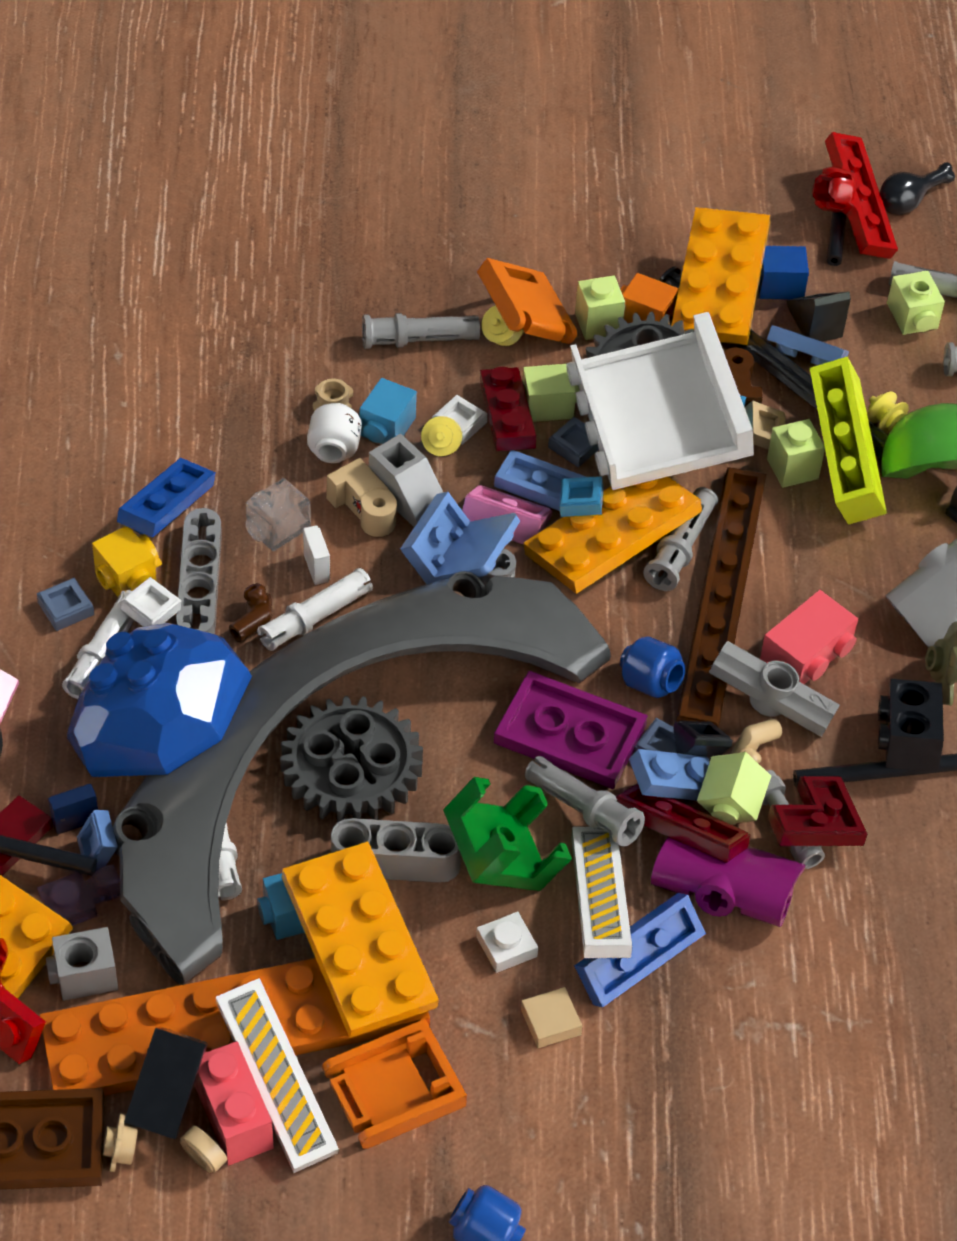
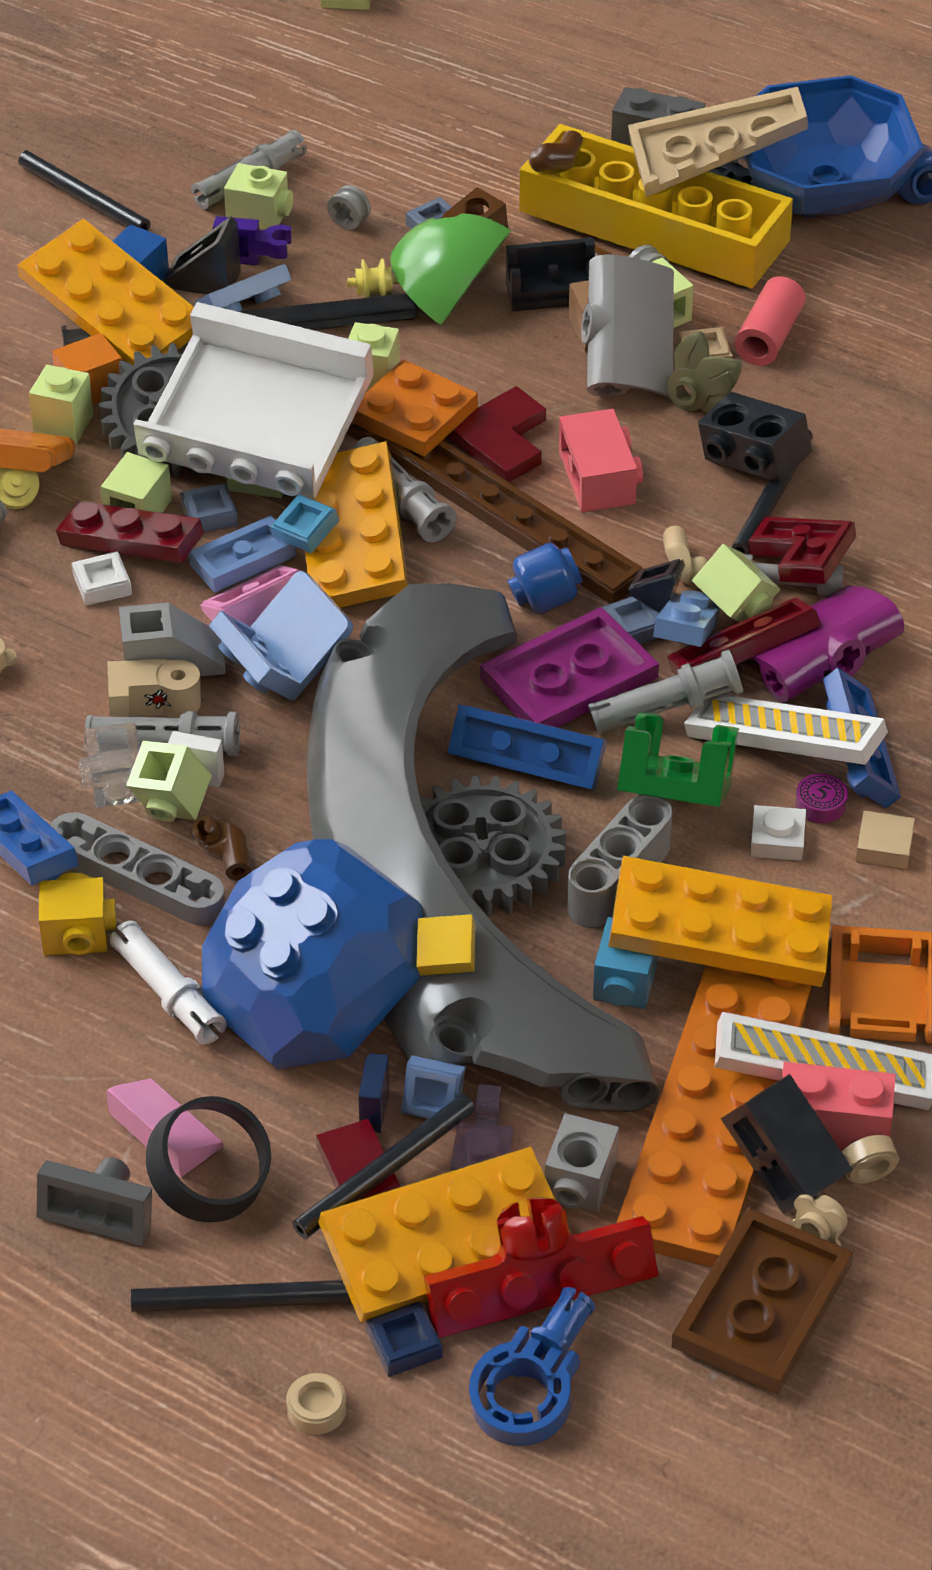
camera: 55 degrees left, 5 degrees down
(65, 604) = (77, 996): sand blue tile -> none
(150, 603) = (159, 912): white tile -> none
(190, 771) = (446, 945): none -> yellow tile
(273, 549) = (169, 781): none -> yellowish green brick
(302, 616) = (264, 805): white pin -> none
(334, 432) = (46, 671): white head -> none
(349, 547) = (160, 729): none -> light grey pin
(387, 411) = (53, 621): dark azure brick -> none
(441, 436) = (121, 590): light yellow wheel -> none
(469, 734) = (527, 746): none -> blue plate
(561, 952) = (822, 798): none -> magenta tile
(767, 501) = (414, 407): none -> orange plate
(774, 688) = (640, 506): light grey piece -> none
(797, 560) = (495, 432): none -> dark red tile
(847, 441) = (424, 320): neon yellow brick -> none
(854, 191) = (83, 168): red plate -> none
(863, 325) = (257, 242): none -> dark purple plate
(904, 190) = (109, 131): black piece -> none

